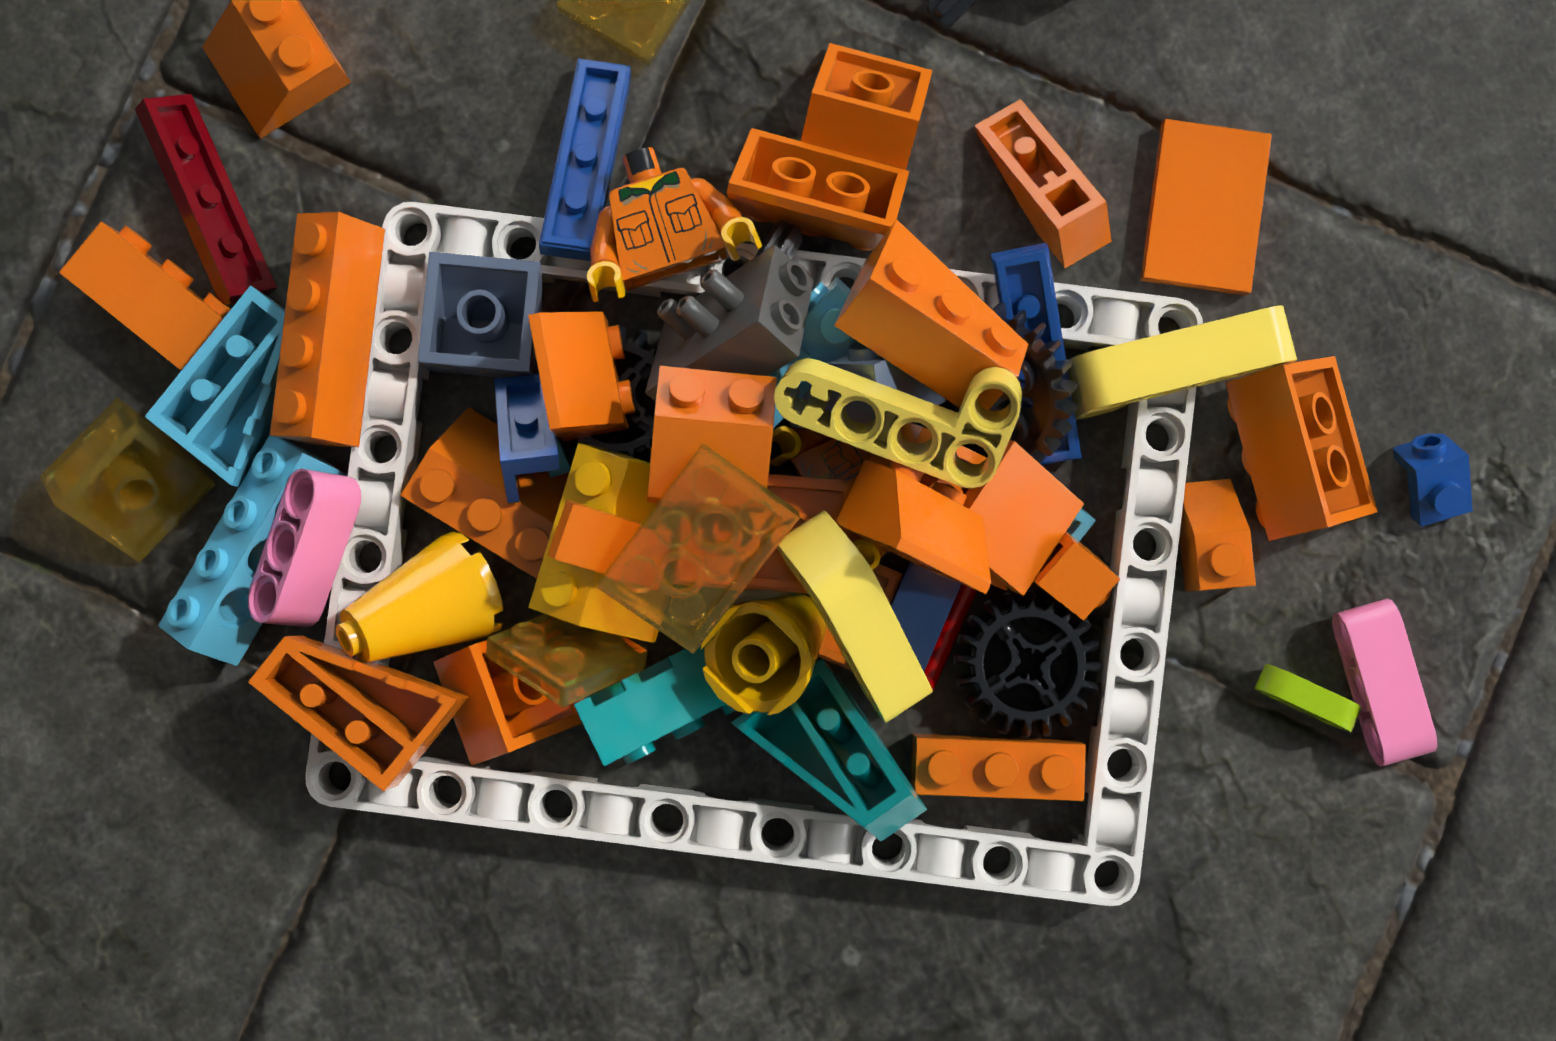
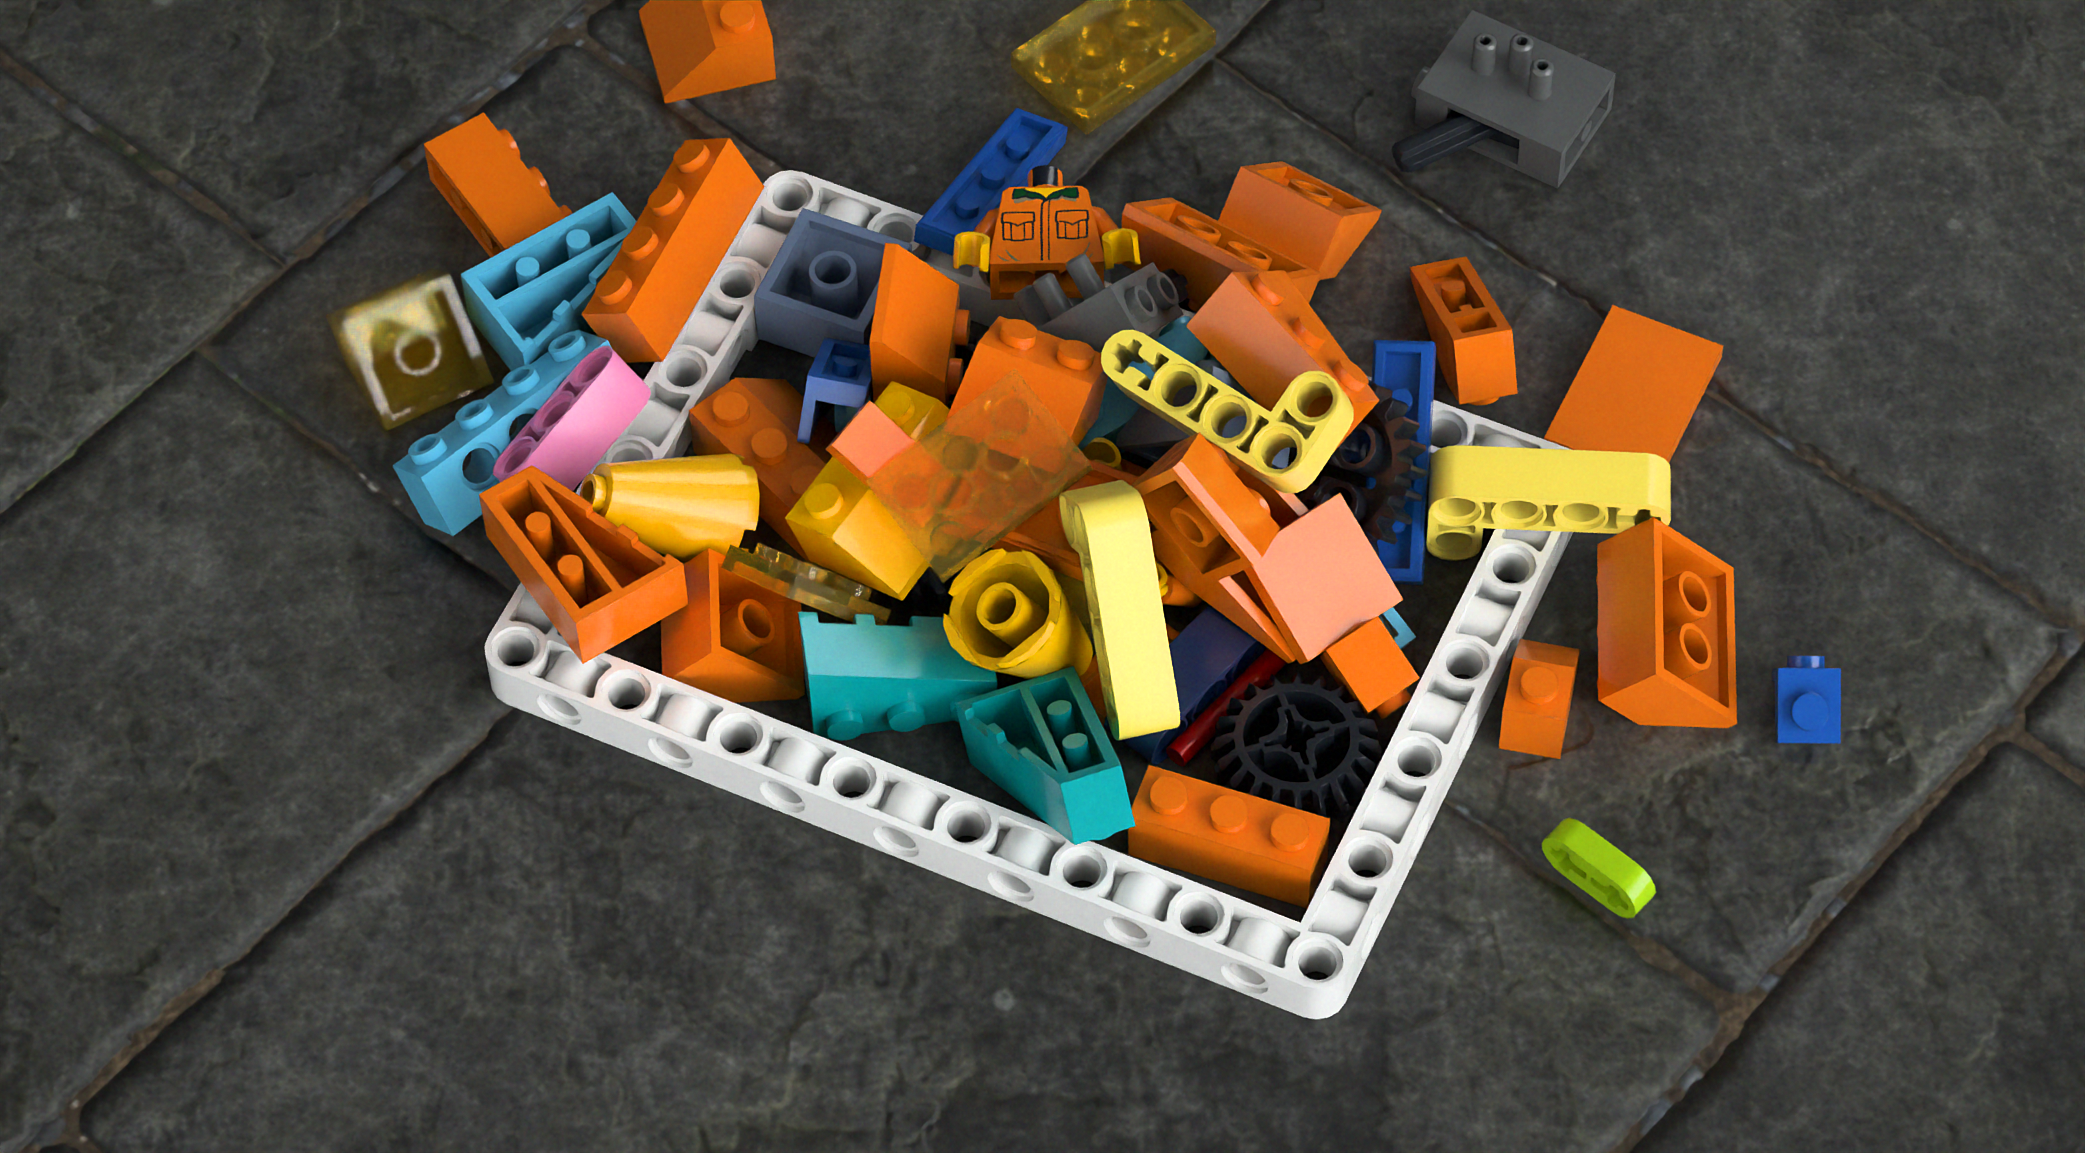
camera: 20 degrees right, 30 degrees down
(204, 196) = (589, 118): dark red plate -> none
(1384, 682) = (1689, 876): bright pink beam -> none

